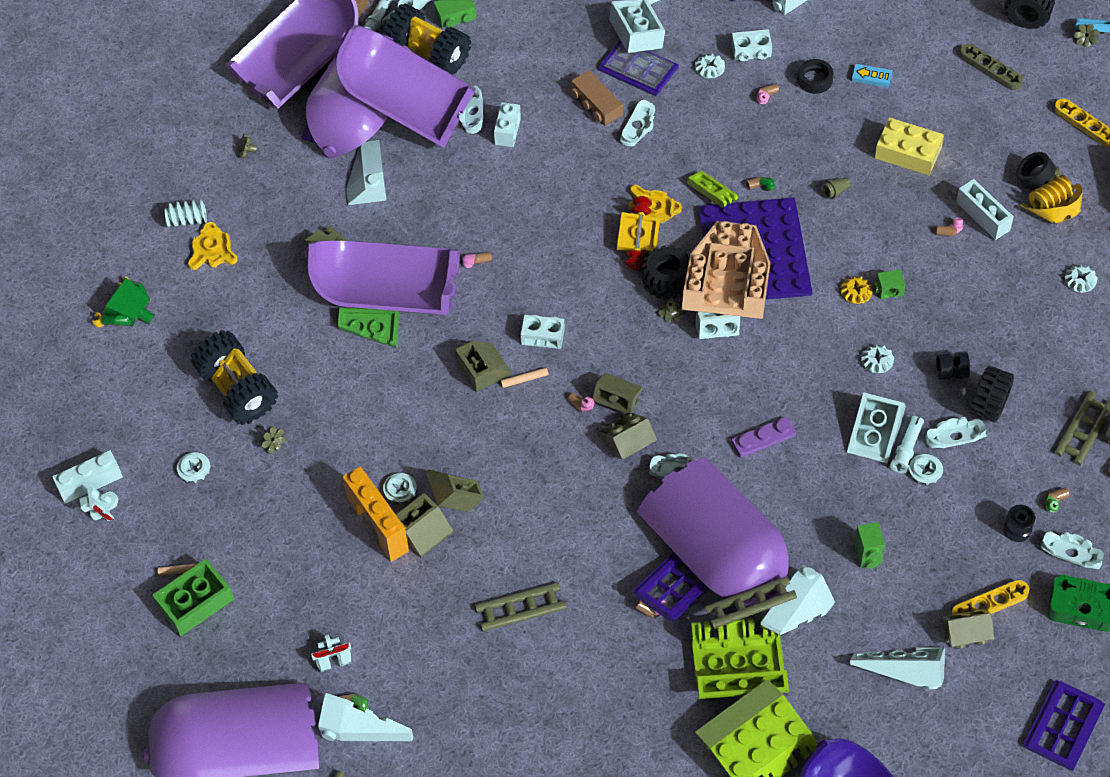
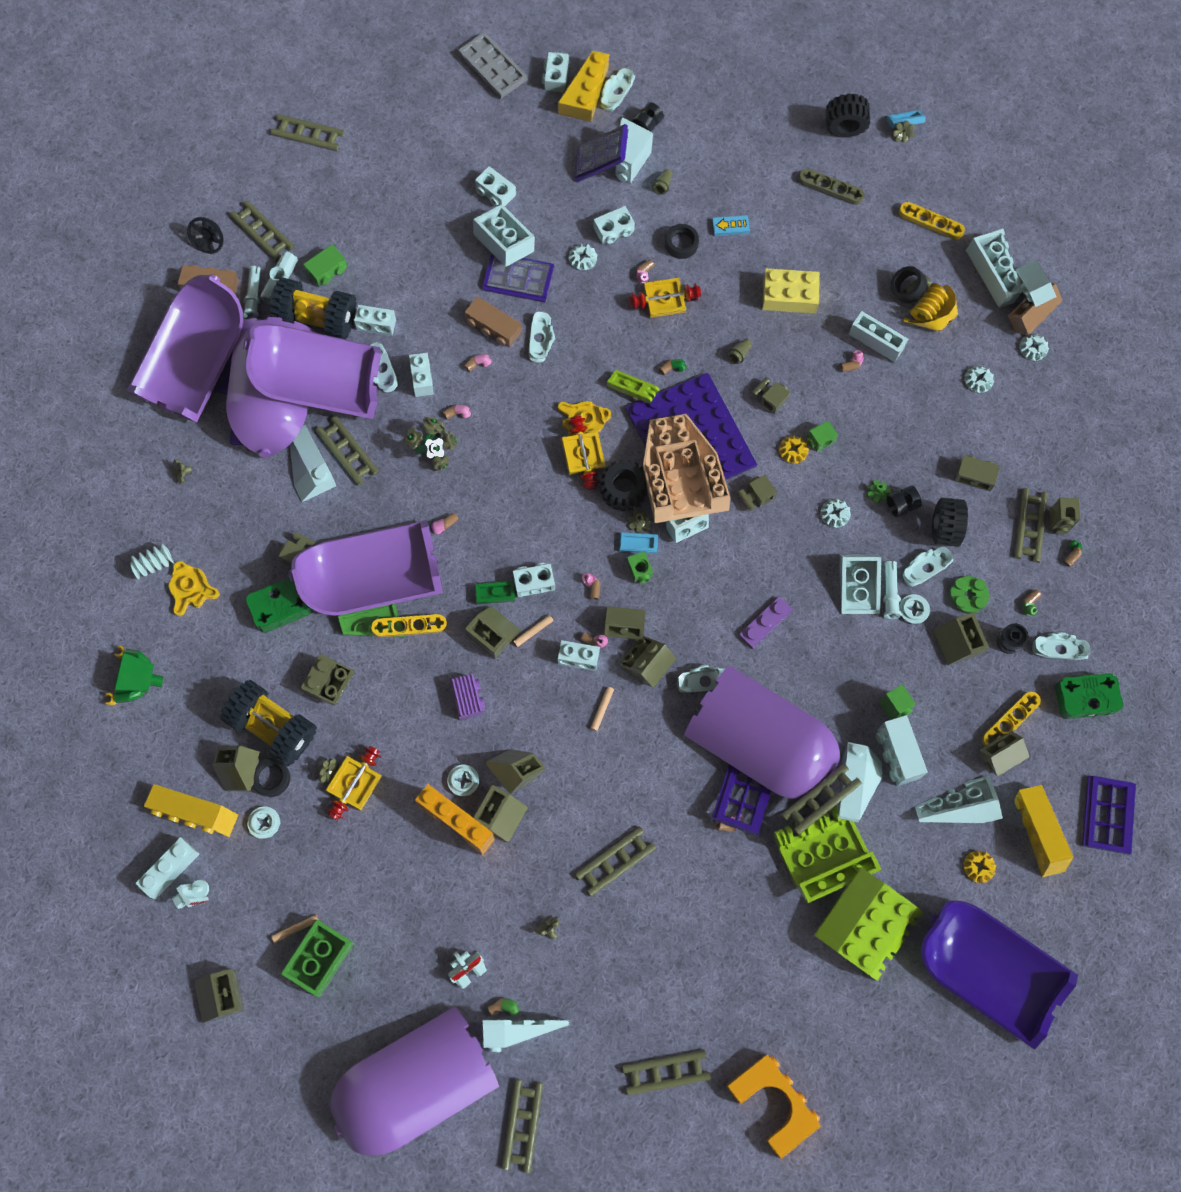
camera: 25 degrees left, 15 degrees up
(88, 601) = (219, 995): none -> olive slope
(131, 433) = (190, 810): none -> yellow wedge
(187, 406) = (236, 767): none -> olive slope
(218, 442) = (282, 786): none -> black tyre
(286, 284) = (279, 610): none -> green axle
(293, 458) = (353, 783): none -> yellow plate
(304, 358) = (327, 680): none -> olive slope
(402, 339) = (408, 623): none -> yellow beam
(404, 181) = (348, 439): none -> olive bar
(428, 645) = (548, 928): none -> olive plant
(433, 414) = (467, 697): none -> medium lavender brick
(482, 67) = (375, 320): none -> light aqua brick
(491, 184) = (432, 447): none -> olive plant
(500, 332) = (495, 592): none -> green plate
(529, 164) = (457, 409): none -> arm
(559, 409) = (578, 655): none -> light aqua brick
(563, 466) = (602, 708): none -> light nougat piece
(567, 127) = (477, 359): none -> arm
(601, 353) = (593, 584): none -> arm
(653, 342) = (639, 560): none -> bright green brick
(662, 329) = (638, 542): none -> medium azure tile
(777, 120) = (665, 297): none -> yellow plate
(805, 315) = (759, 490): none -> olive brick
(817, 20) = (662, 182): none -> olive cone
(852, 234) = (773, 397): none -> olive brick
(855, 590) = (901, 751): none -> light aqua brick
(901, 739) = (971, 869): none -> yellow gear
(929, 351) = (878, 491): none -> bright green plant
(963, 508) = (961, 639): none -> olive slope
(981, 714) = (1043, 831): none -> yellow wedge
(997, 482) = (977, 587): none -> bright green plate
(1042, 361) = (977, 473): none -> olive brick

